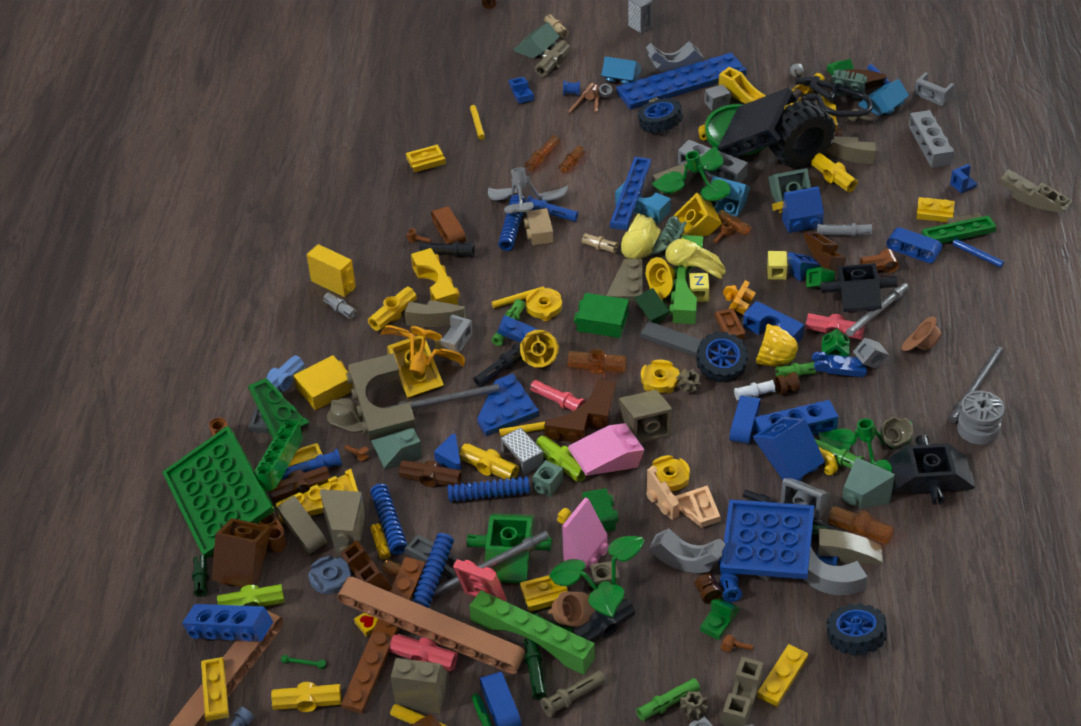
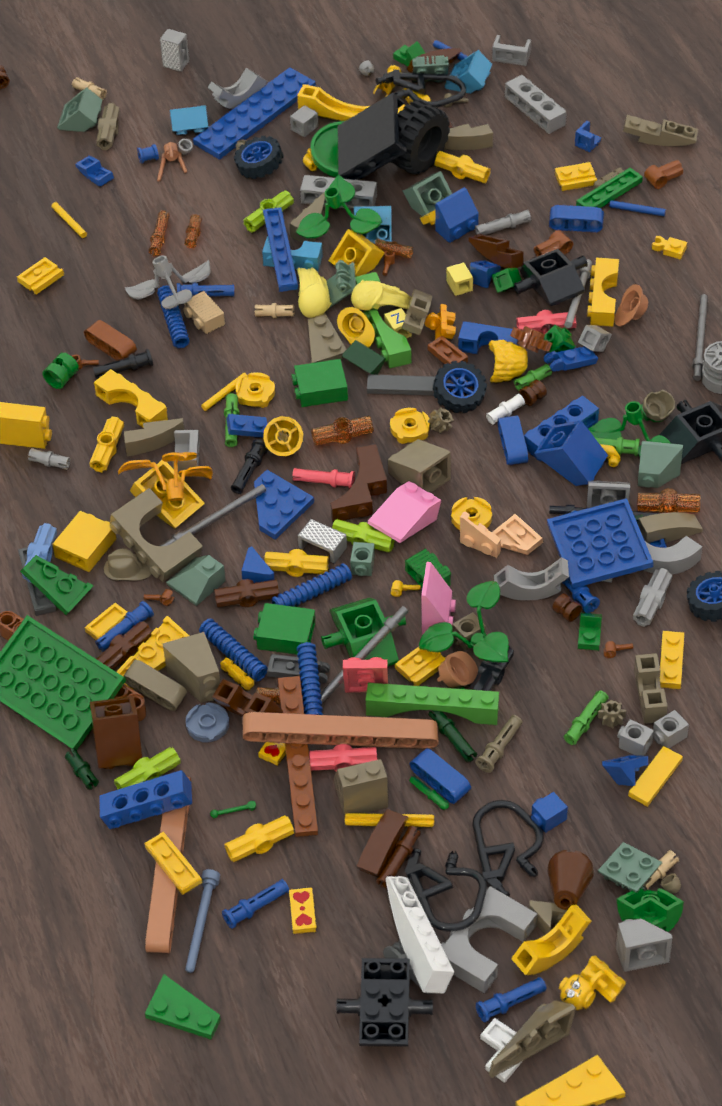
camera: 25 degrees left, 5 degrees up
(279, 454) = (91, 624): green beam -> none
(391, 237) = (60, 370): none -> green wheel
(443, 514) = (284, 628): none -> green brick
(527, 428) = (302, 523): yellow bar -> none
(657, 157) = (256, 219): none -> lime piece
(718, 278) = (417, 312): none -> dark tan slope
(795, 608) = (652, 597): none -> light grey piece
(806, 334) = (531, 339): none -> dark orange gear
(912, 302) = (603, 306): none -> yellow arch
(992, 297) = (673, 247): none -> yellow plate
(1013, 231) = (660, 175): none -> dark orange piece

